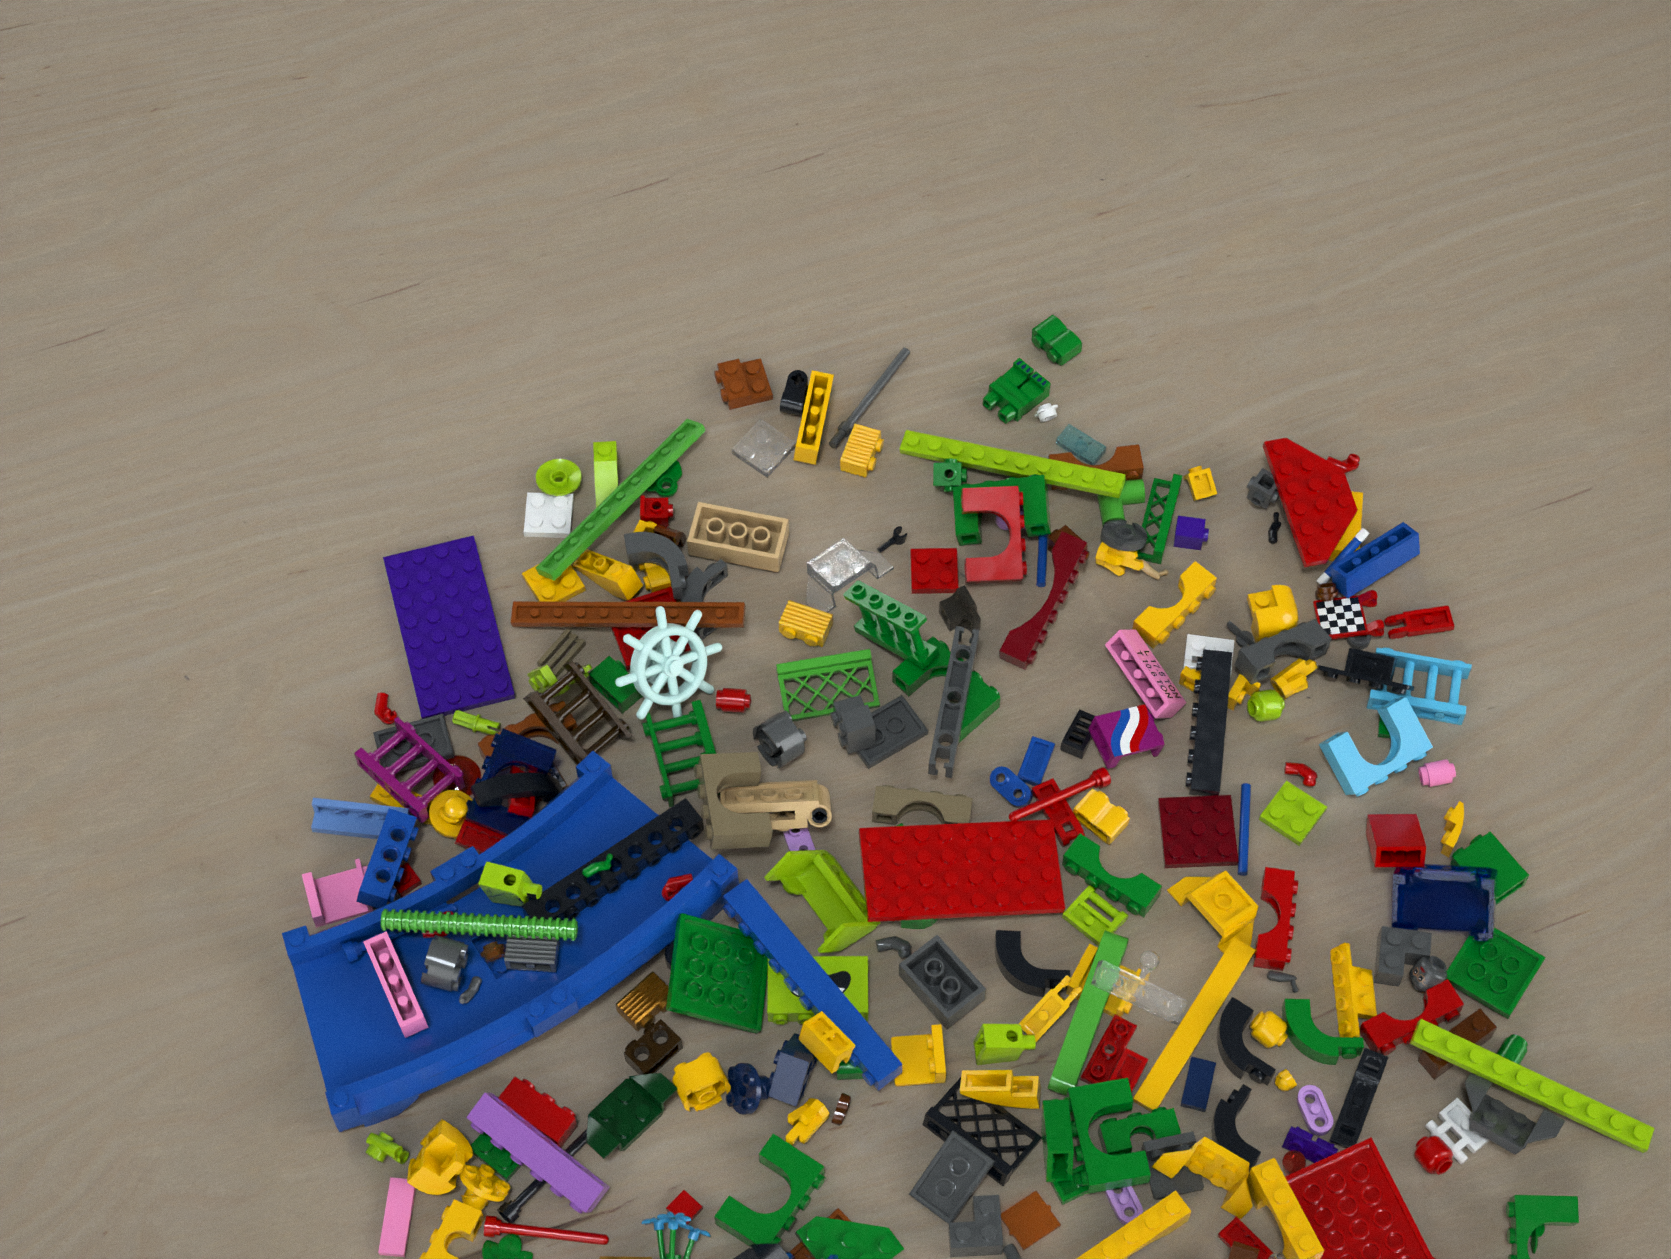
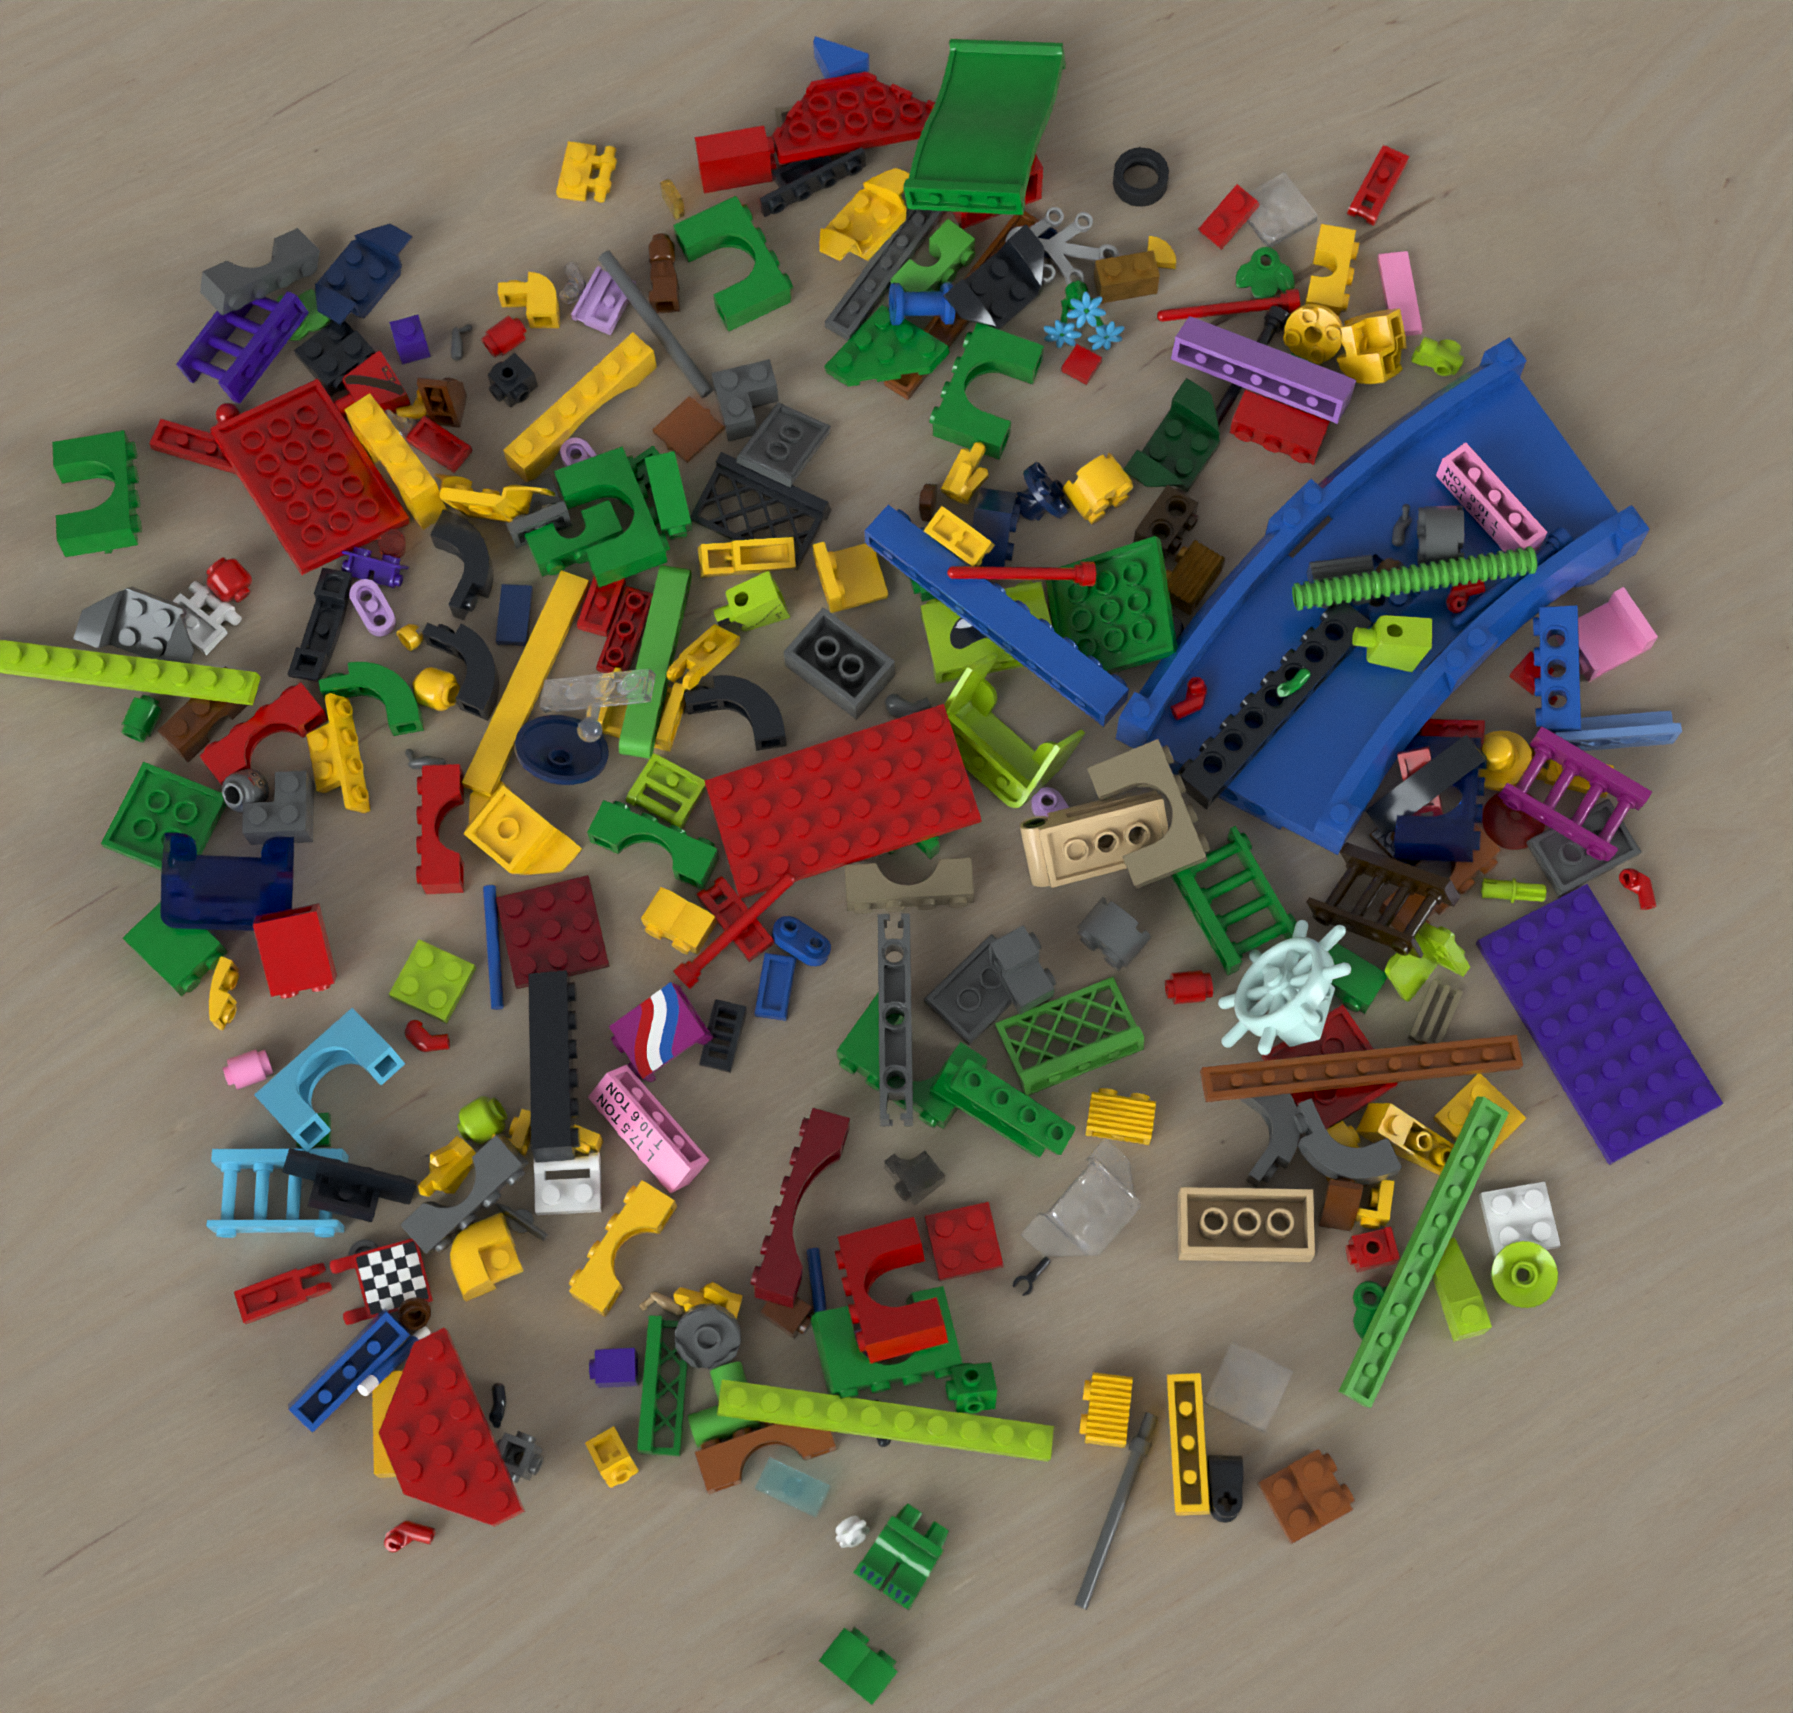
camera: 170 degrees right, 10 degrees up
(734, 1000) = (1083, 573): none -> red piece
(1164, 938) = (556, 753): none -> dark blue dish

